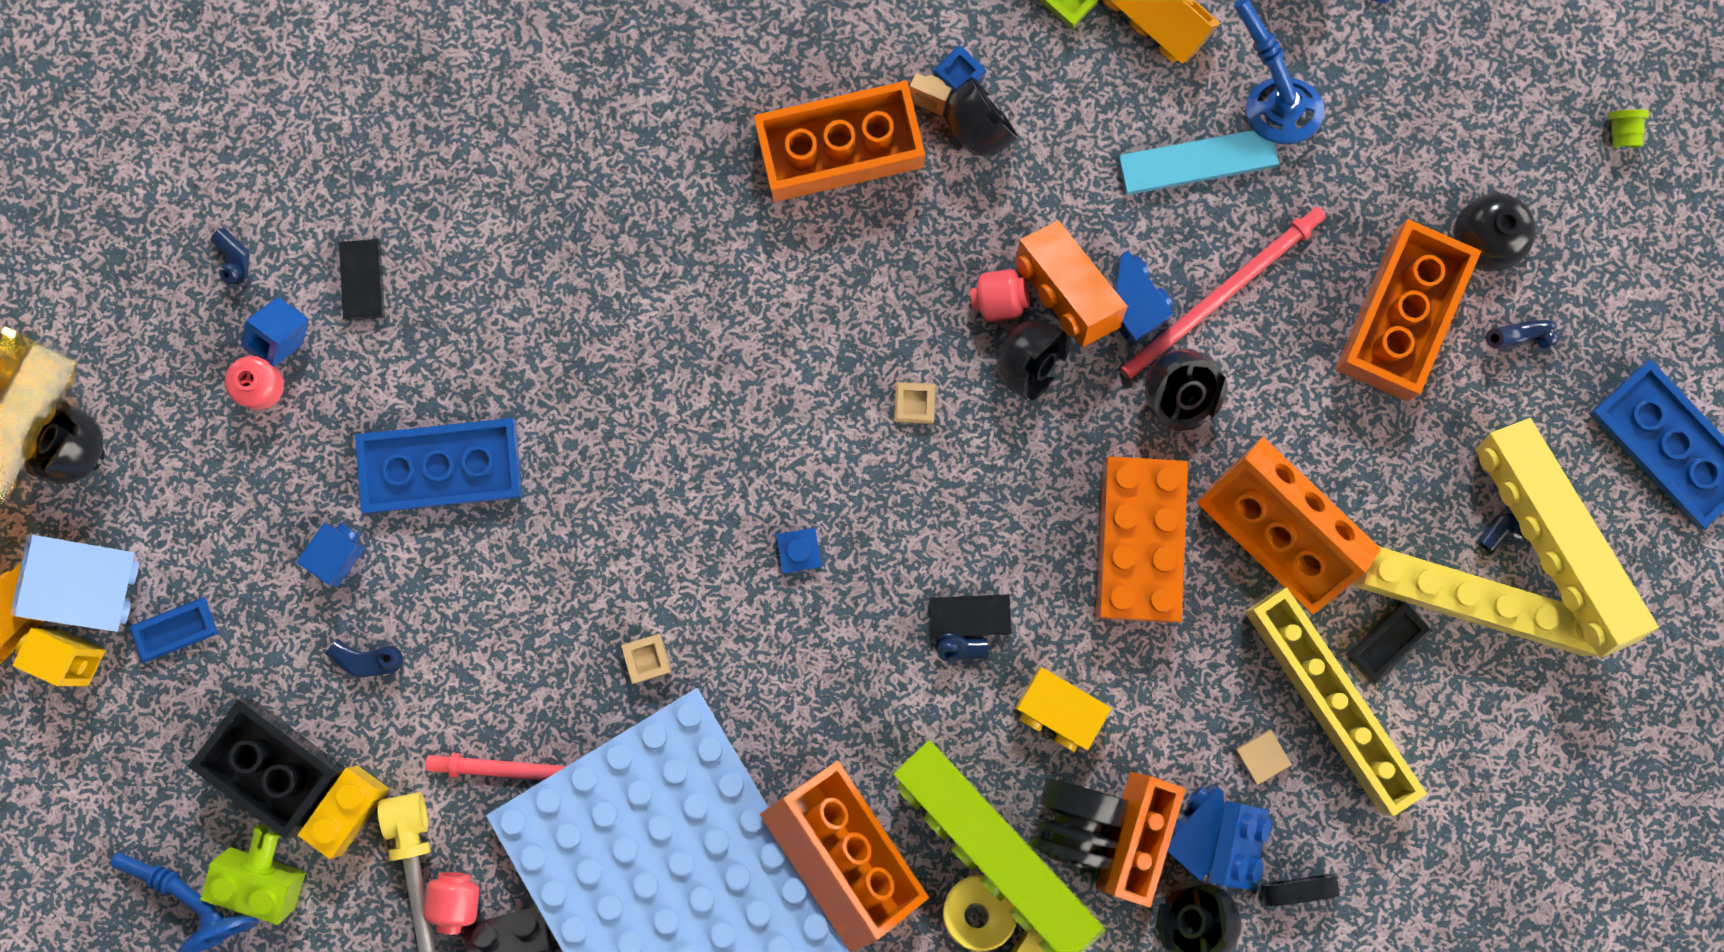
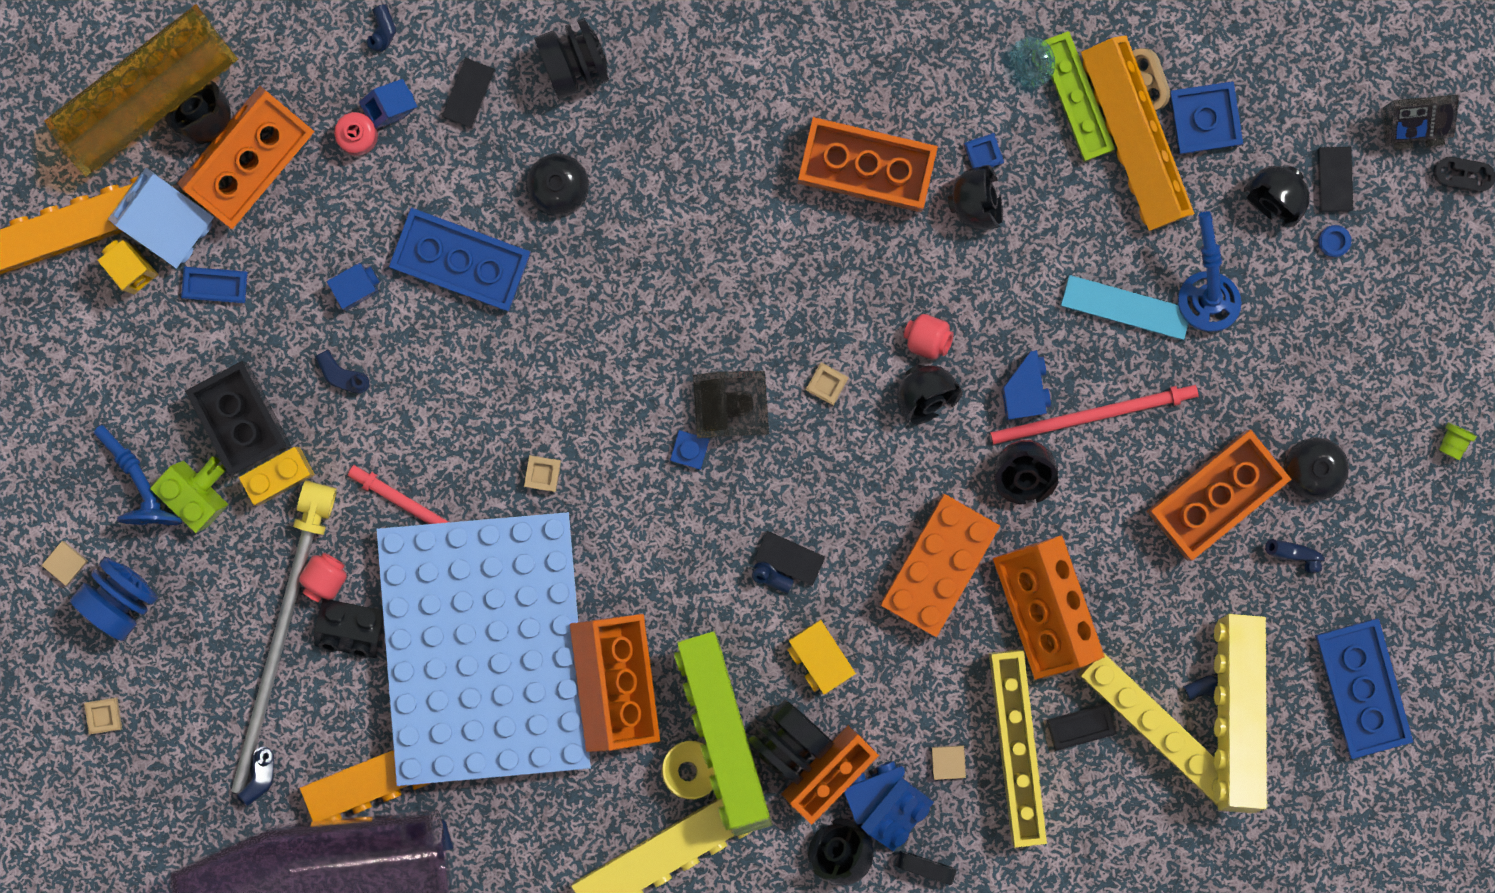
camera: 30 degrees right, 5 degrees up
(166, 457) = (254, 177): none -> orange brick
(456, 183) = (572, 59): none -> black wheel
(508, 331) = (557, 185): none -> black cylinder
(819, 477) = (730, 404): none -> clear smoke slope
(929, 93) = (952, 159): tan plate -> none
(1070, 284) = (981, 354): brick -> none

